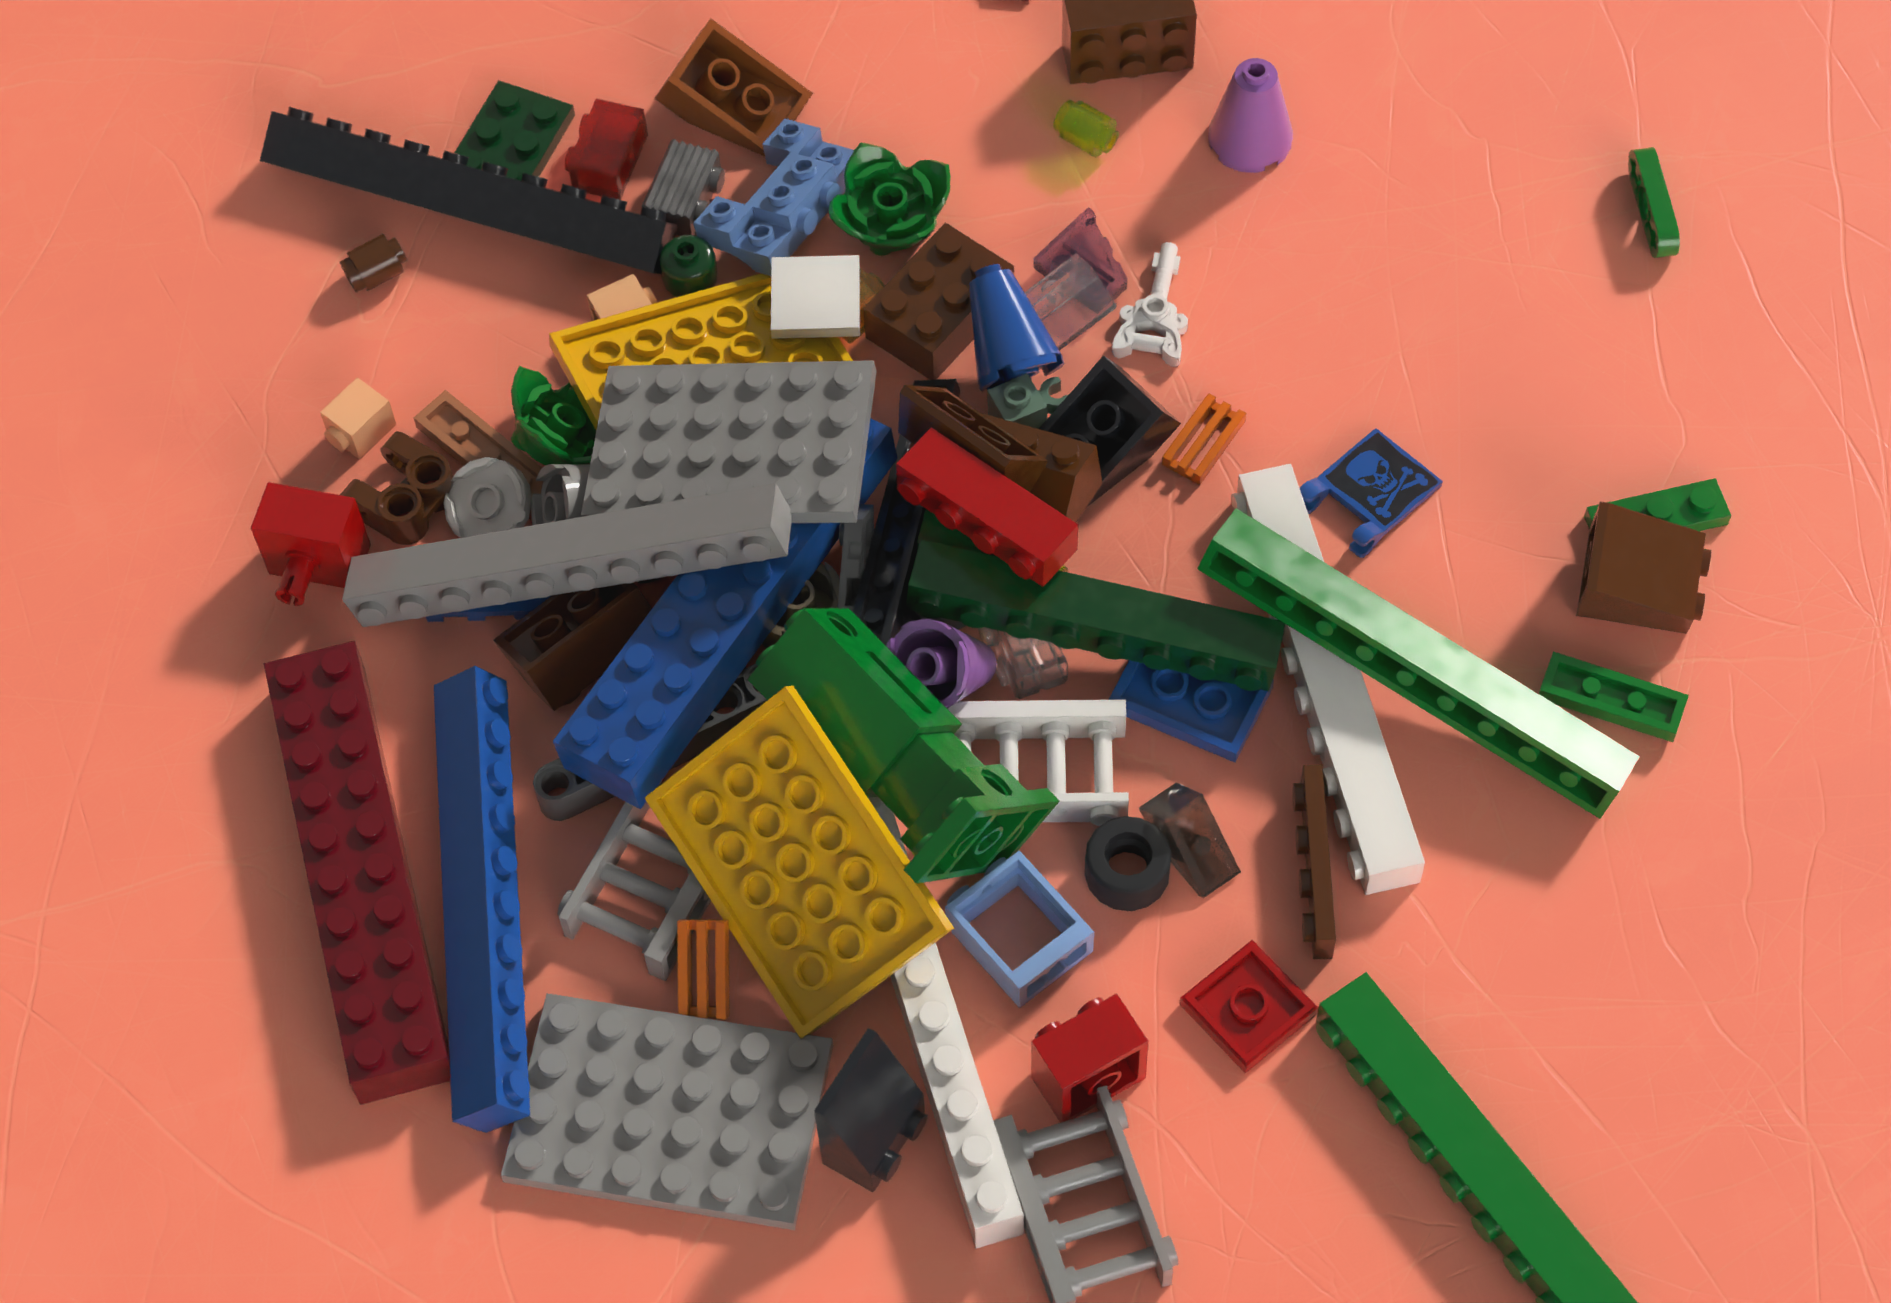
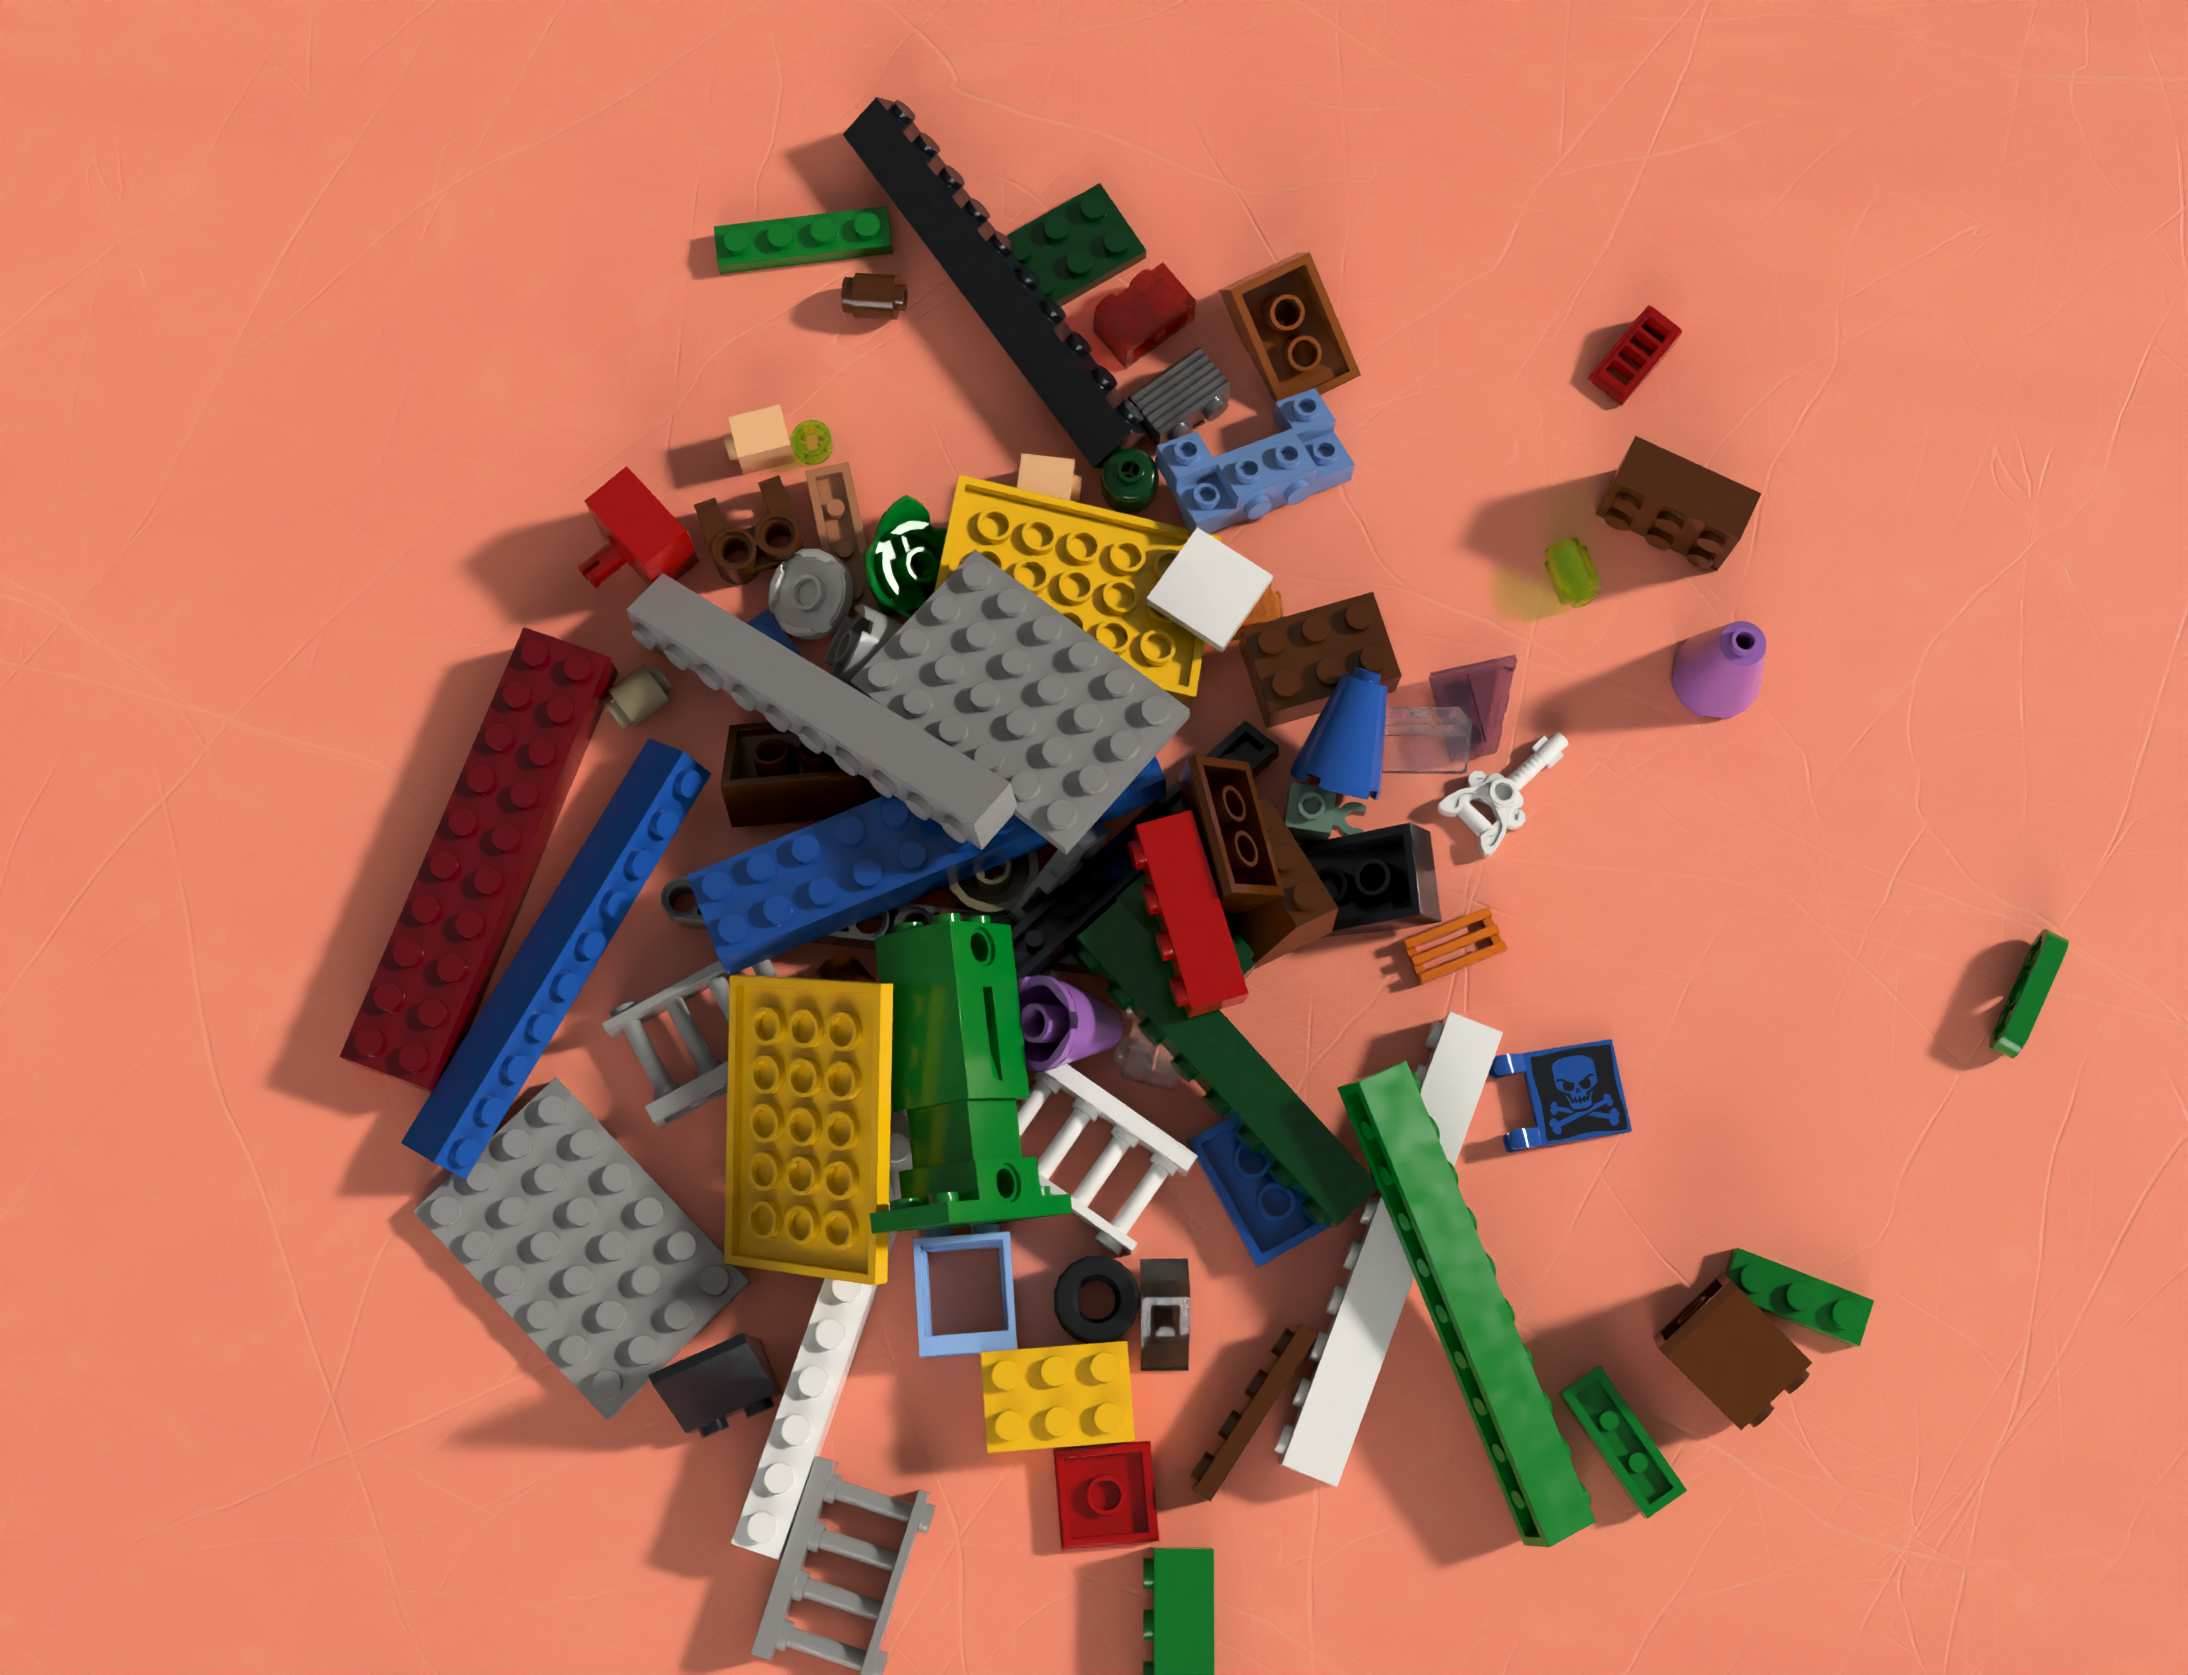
camera: 30 degrees right, 15 degrees up
(280, 261) = (803, 239): none -> green plate
(397, 666) = (638, 696): none -> dark tan brick
(406, 388) = (800, 434): none -> clear neon green bush
(684, 947) = (668, 1176): orange tile -> none
(879, 180) = (1349, 503): green brick -> none
(1087, 1053) = (930, 1458): red brick -> none
(1154, 948) = (1057, 1396): none -> yellow brick

